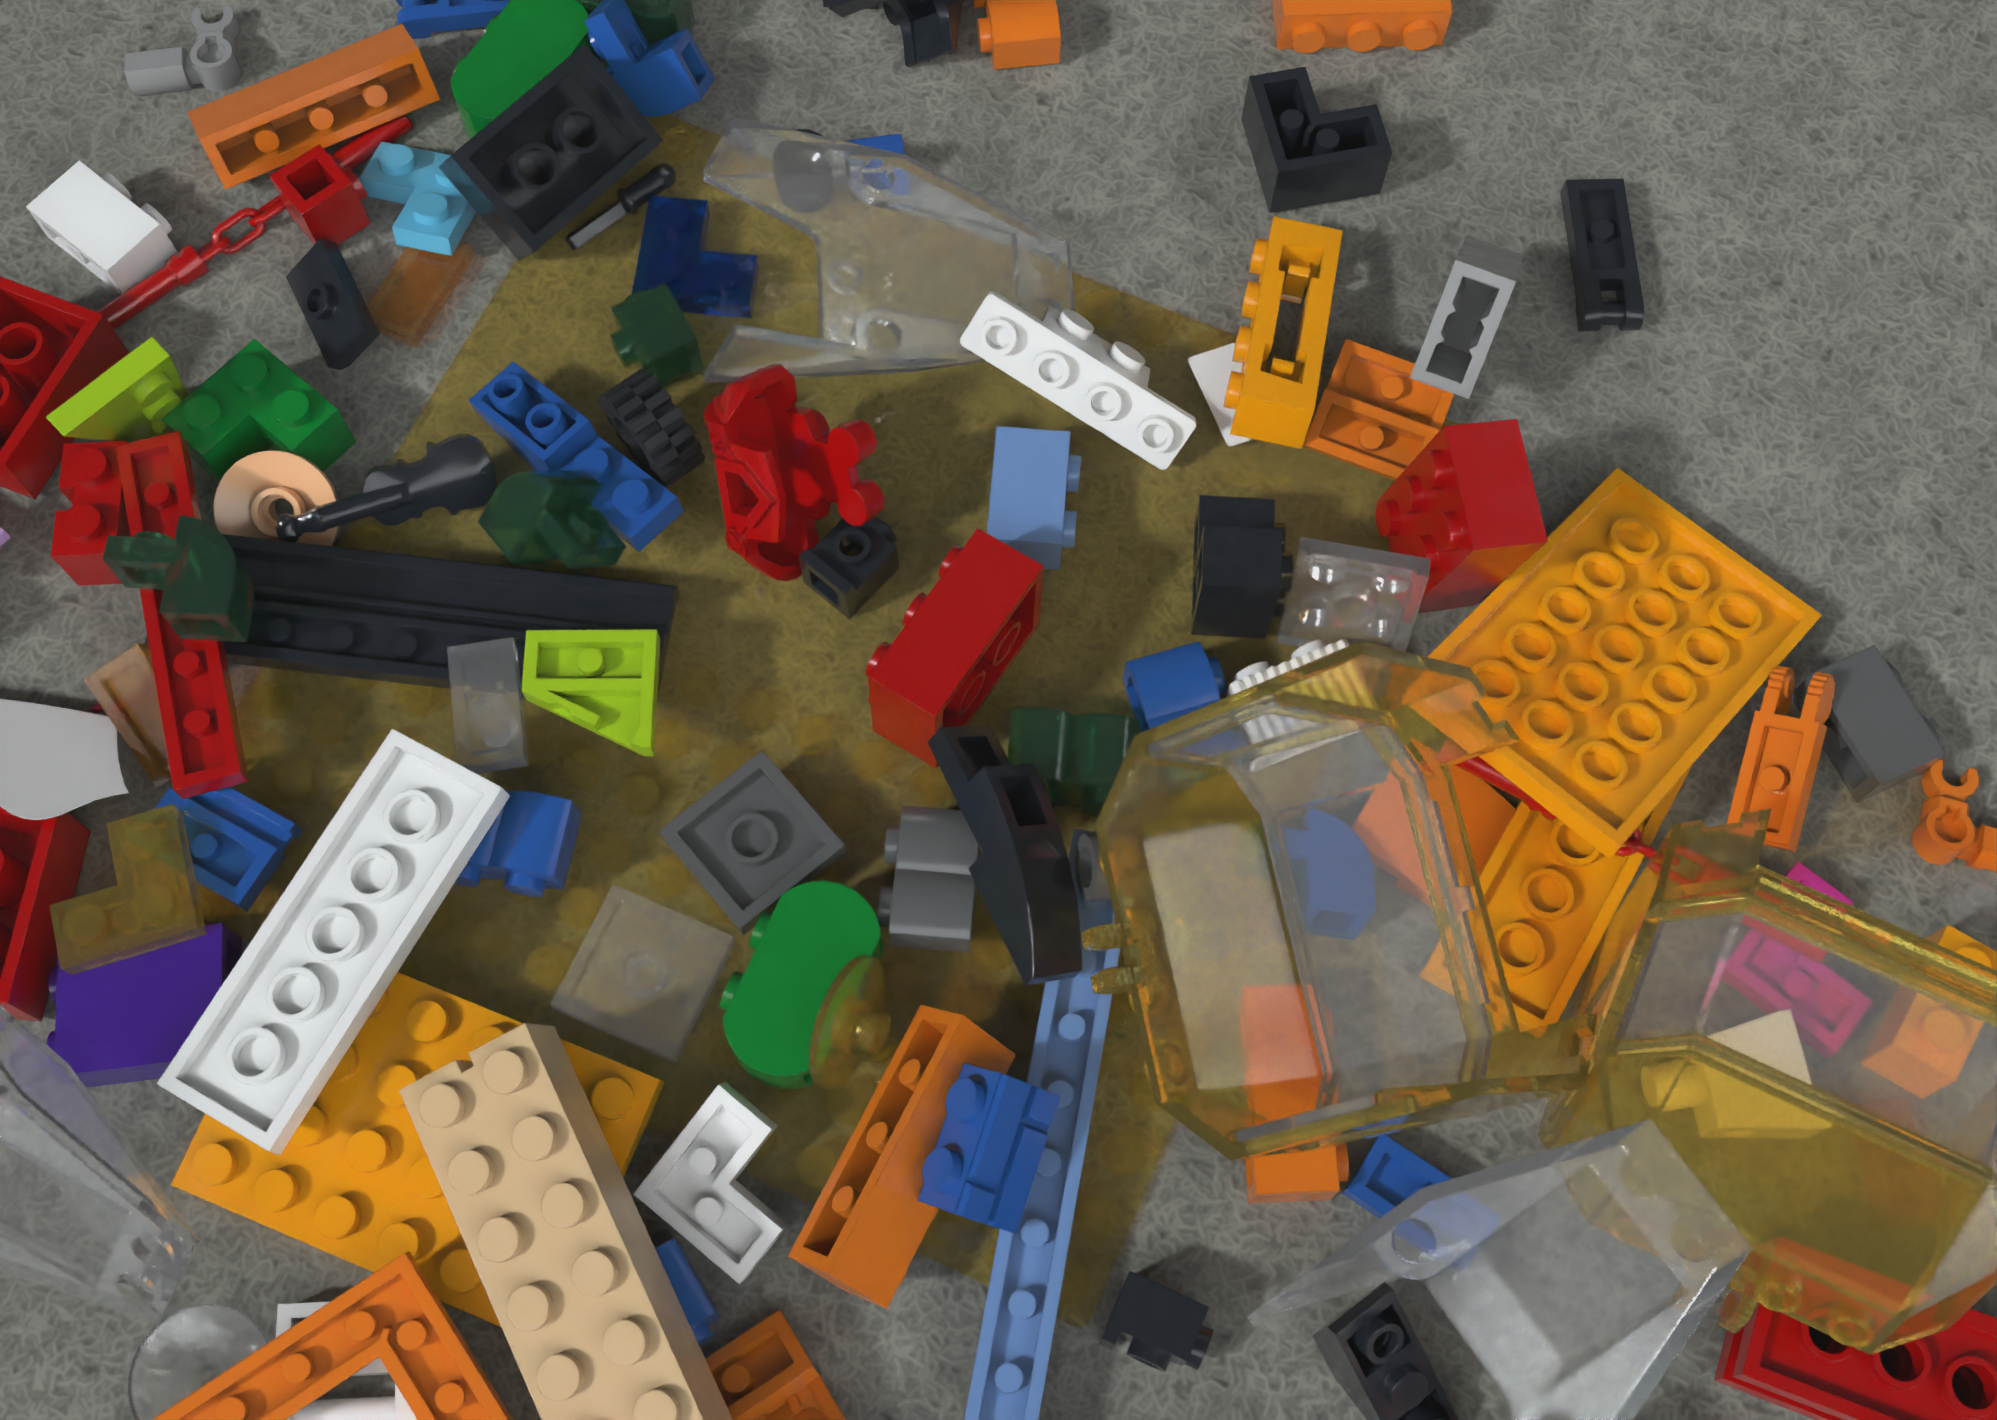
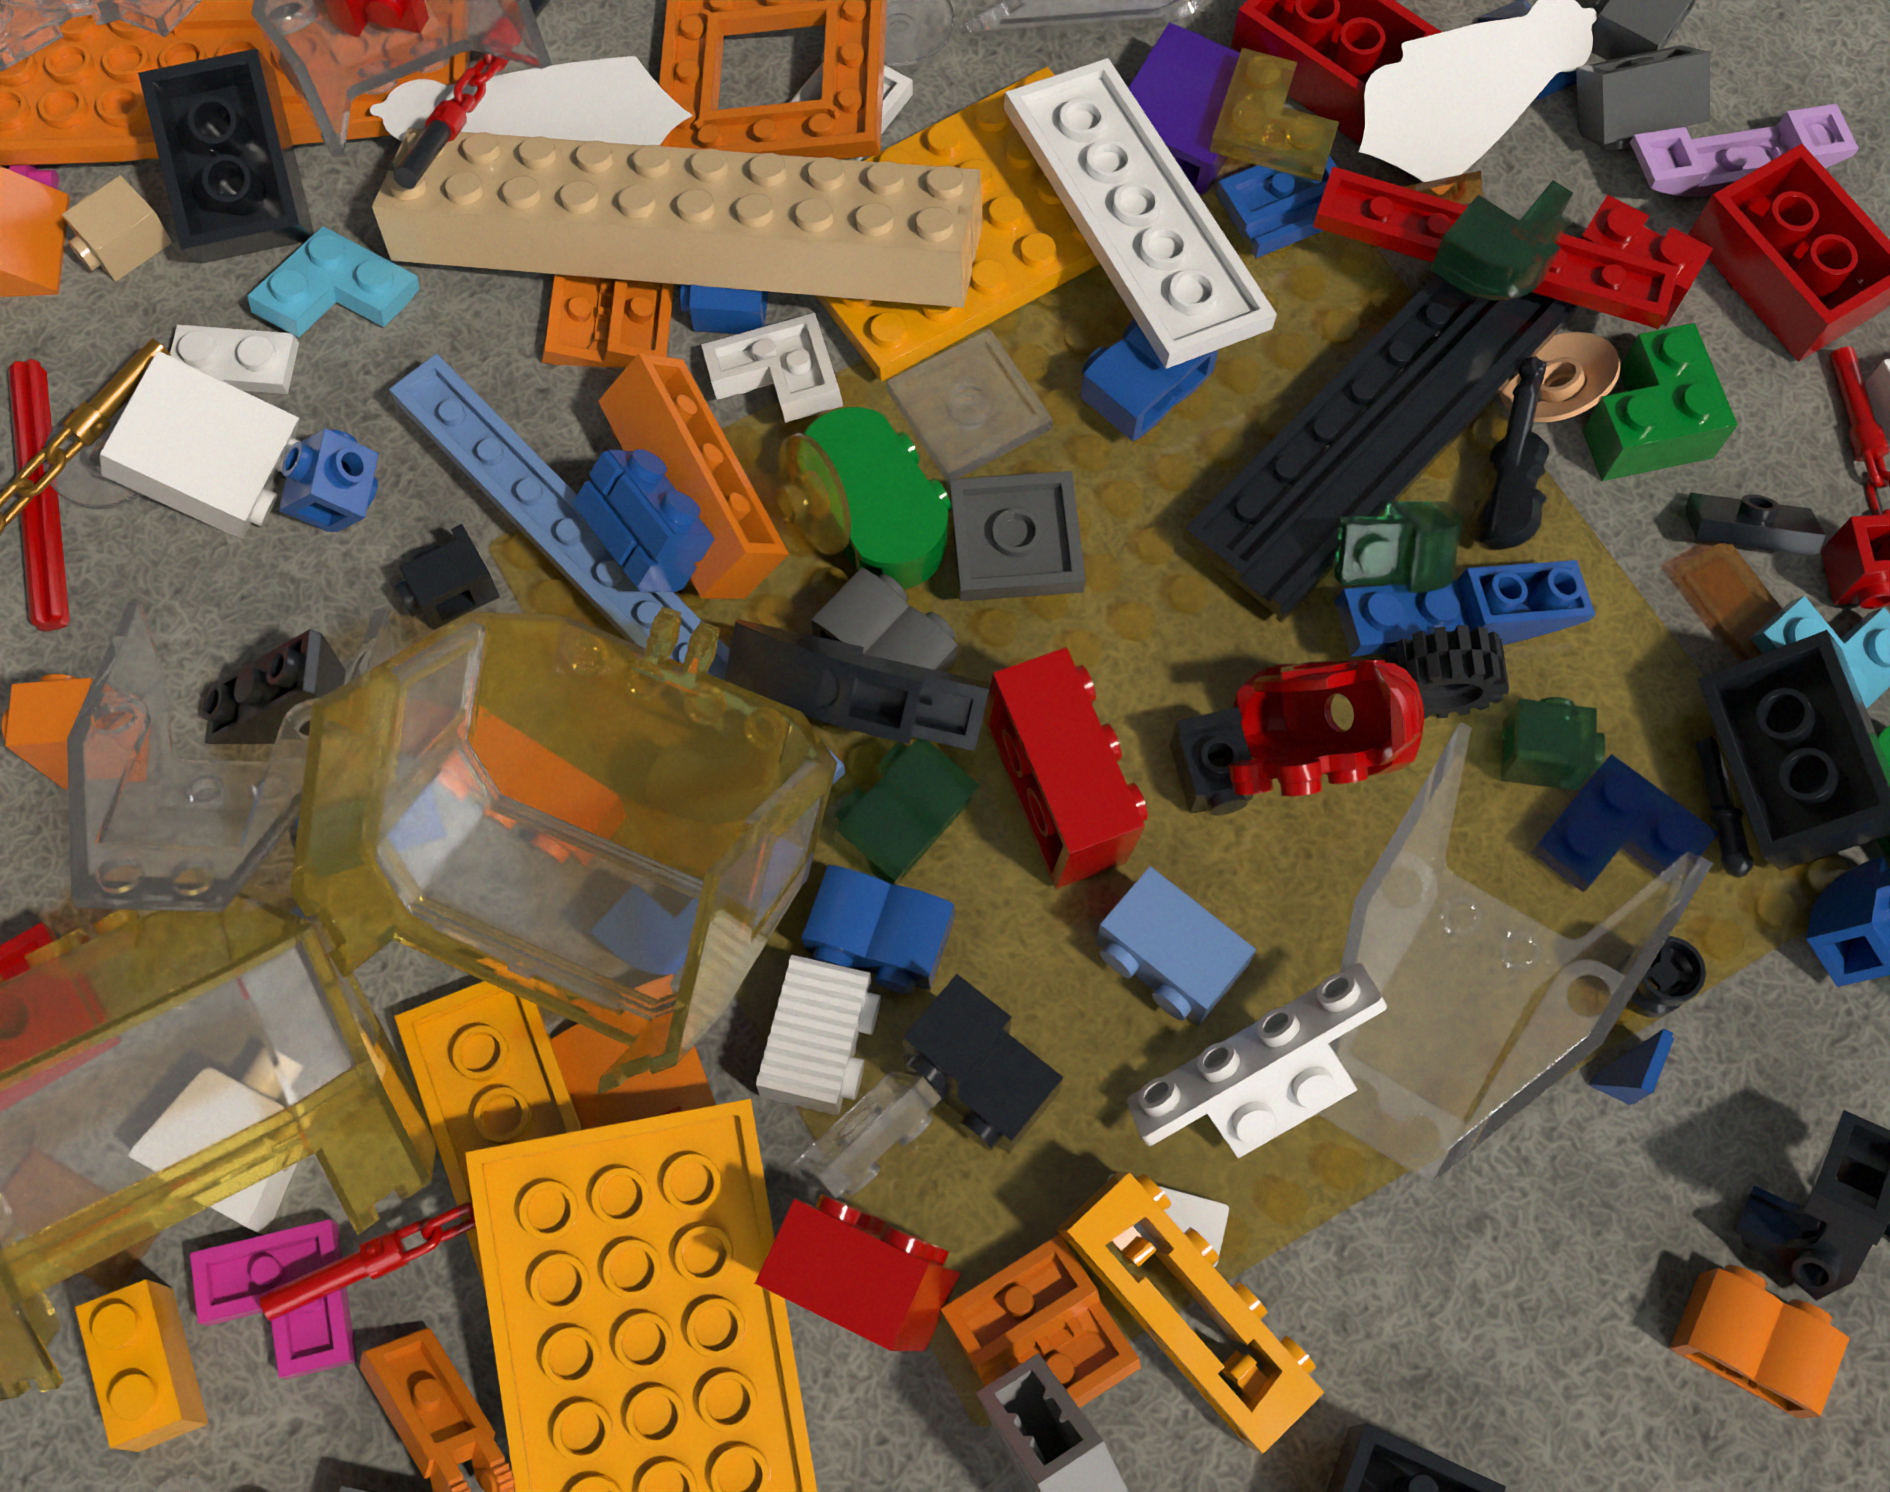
camera: 125 degrees right, 0 degrees up
(125, 399) = (1718, 289): lime wing -> none
(487, 706) = (1259, 405): clear tile -> none
(597, 681) = (1224, 489): lime wing -> none

